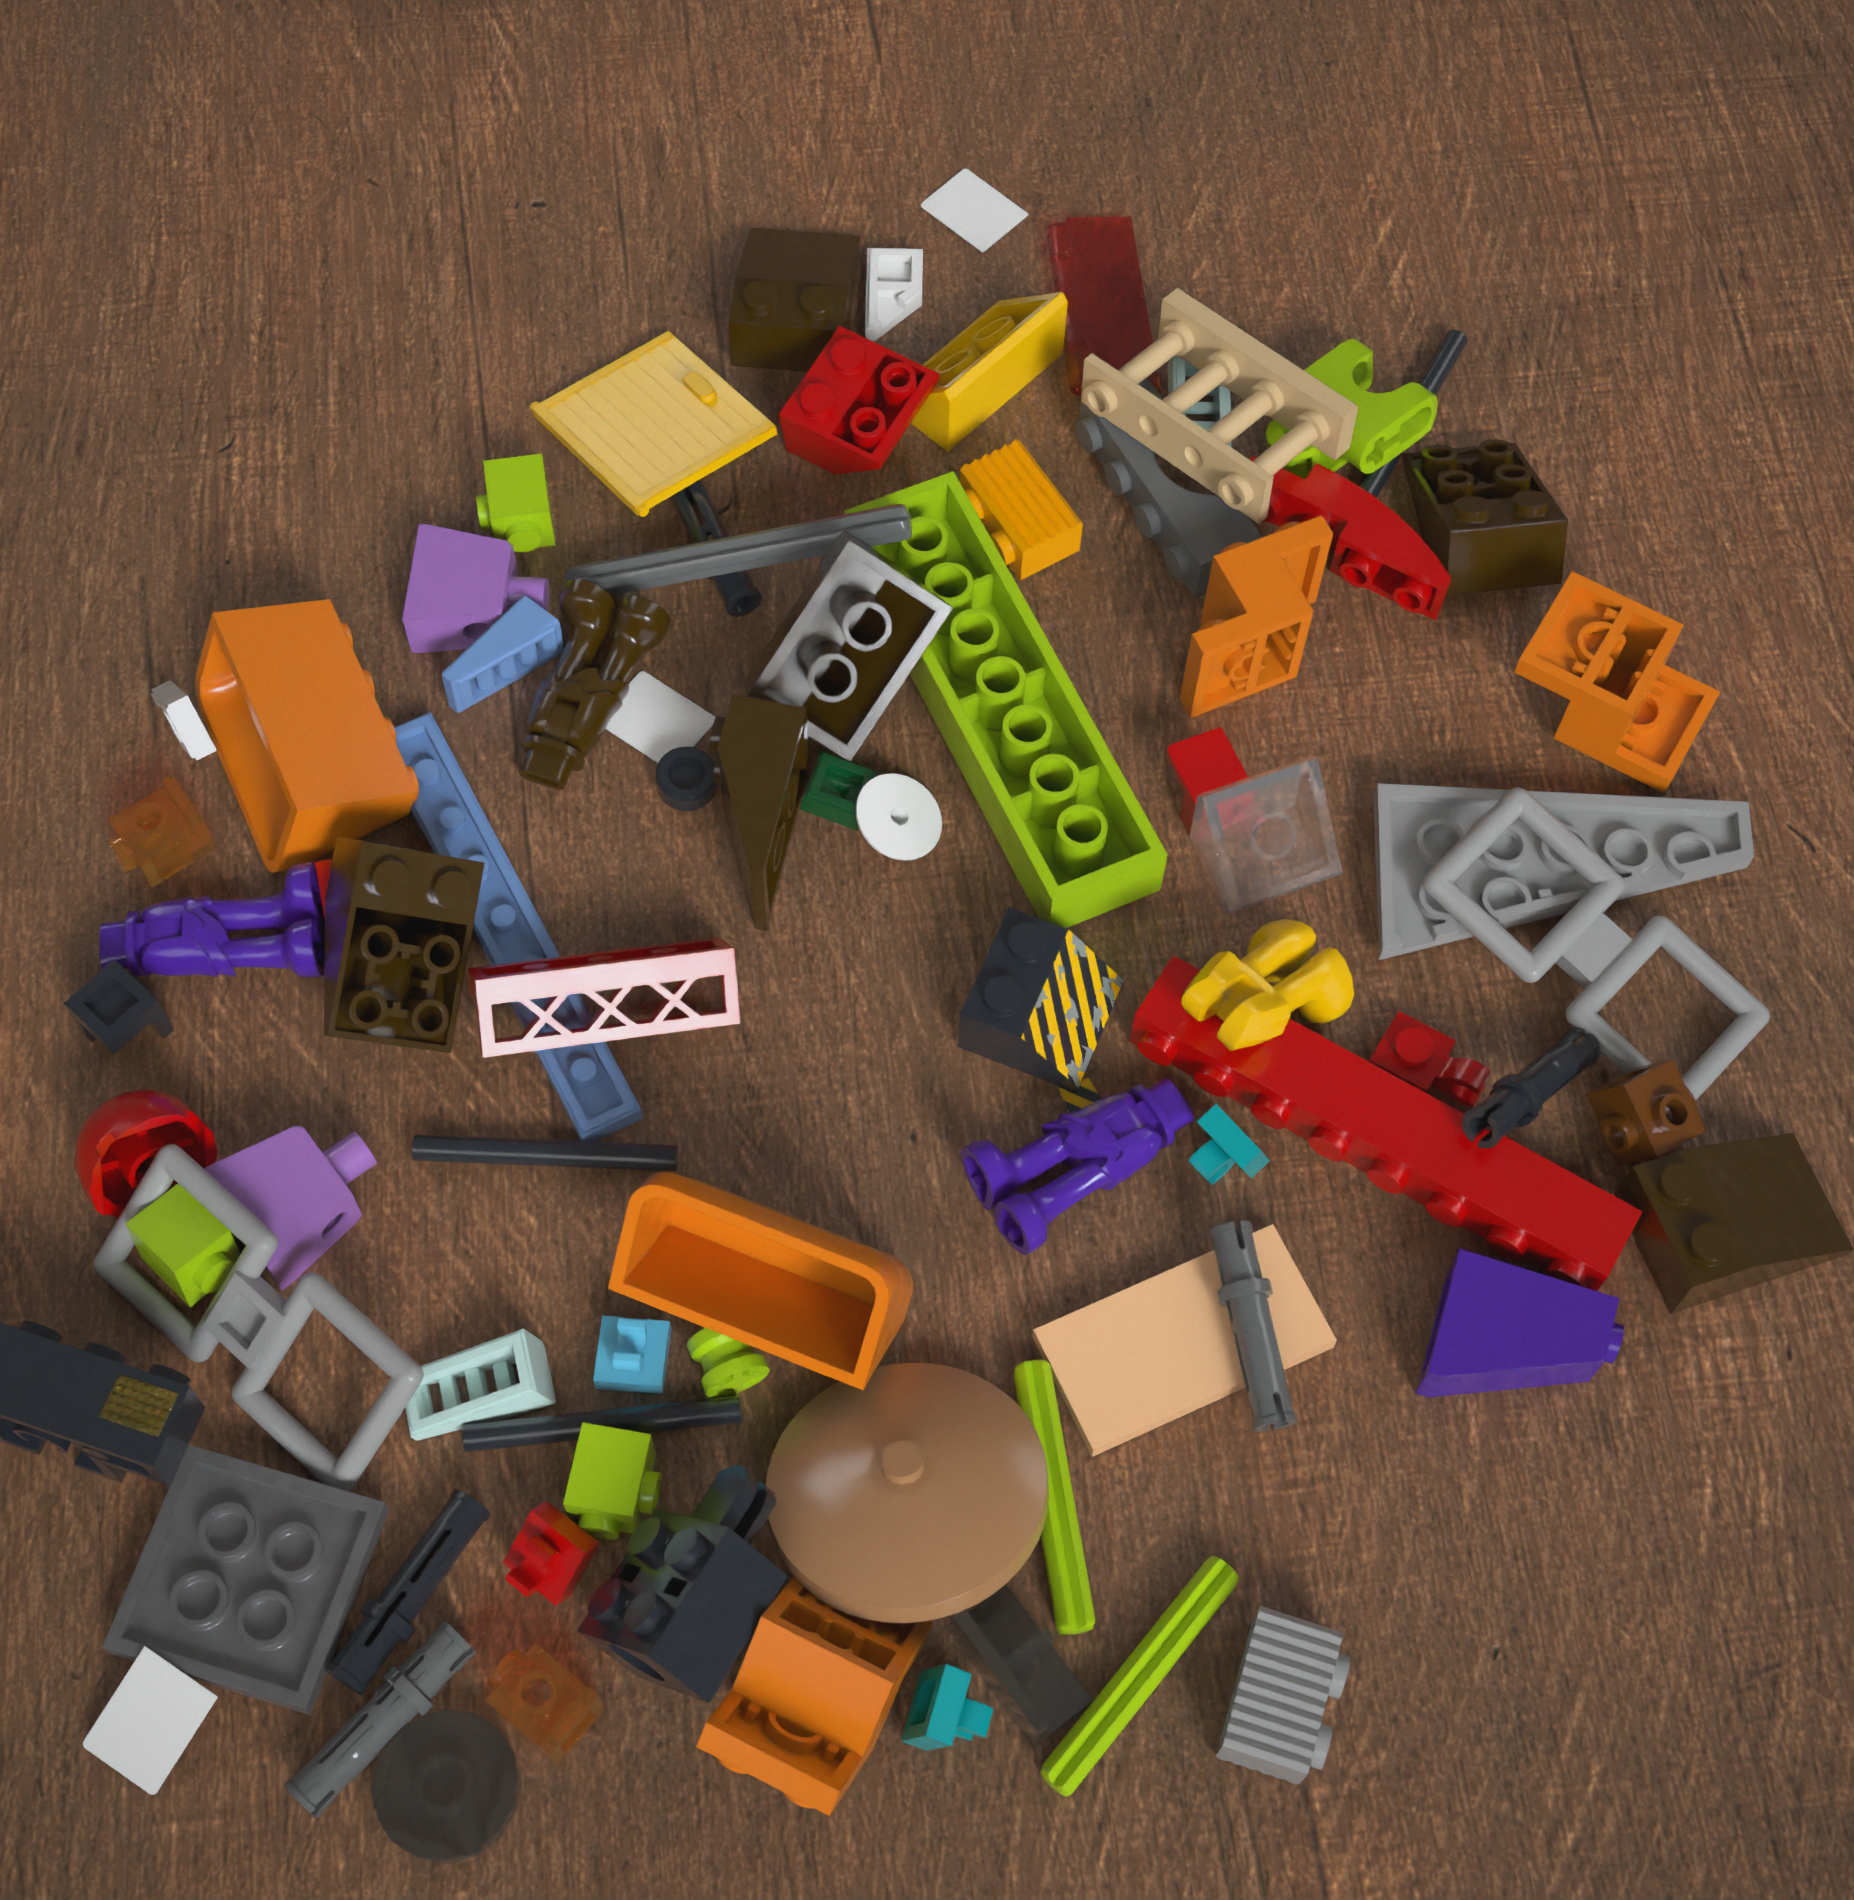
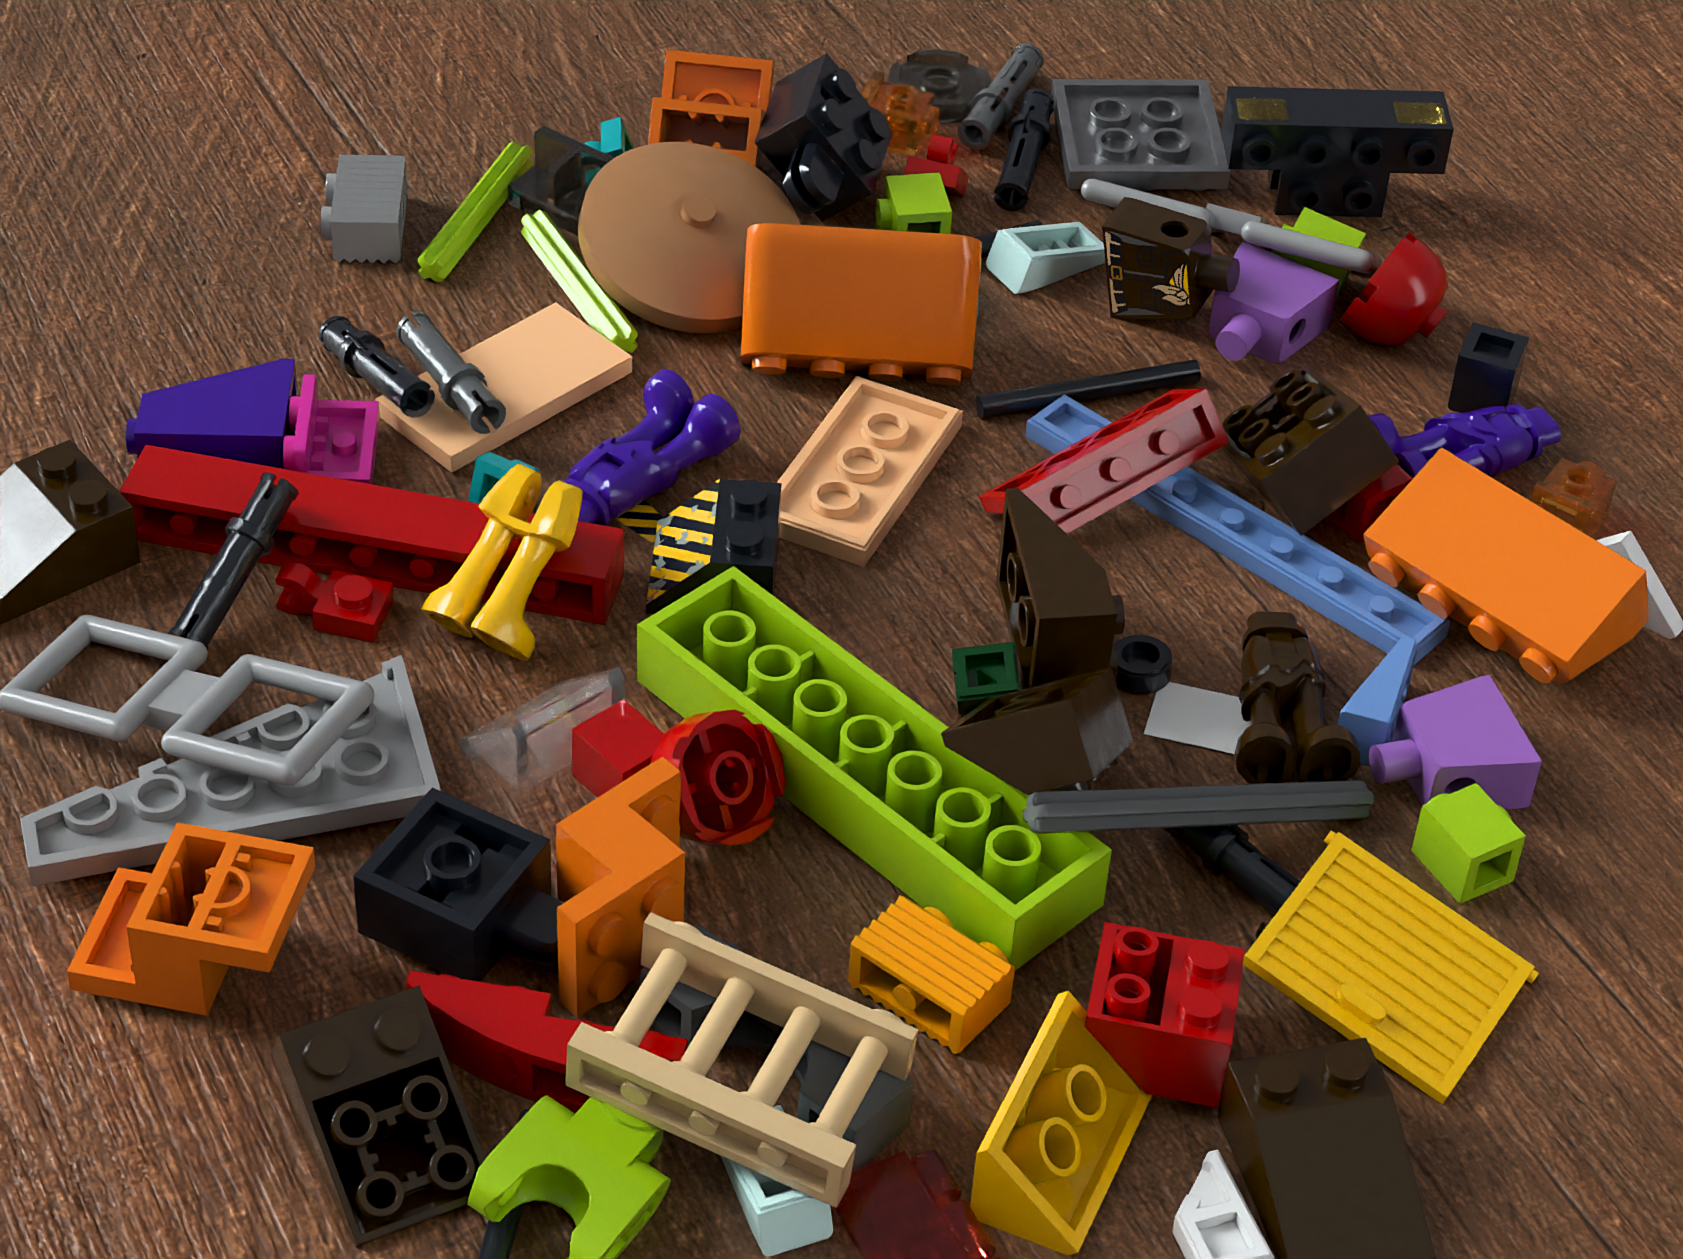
camera: 160 degrees right, 20 degrees down
(149, 1721) = (1152, 68): white sticker -> none
(402, 1263) = (1161, 262): none -> dark brown torso
(842, 1104) = (862, 469): none -> light nougat tile
(898, 817) = (922, 665): white piece -> none
(1147, 707) = (726, 776): none -> red cylinder
(1330, 1376) = (365, 357): none -> black pin
(1385, 664) = (460, 890): none -> black brick
(1396, 1271) = (331, 435): none -> dark pink bracket
(1646, 1112) = (119, 574): reddish brown brick -> none

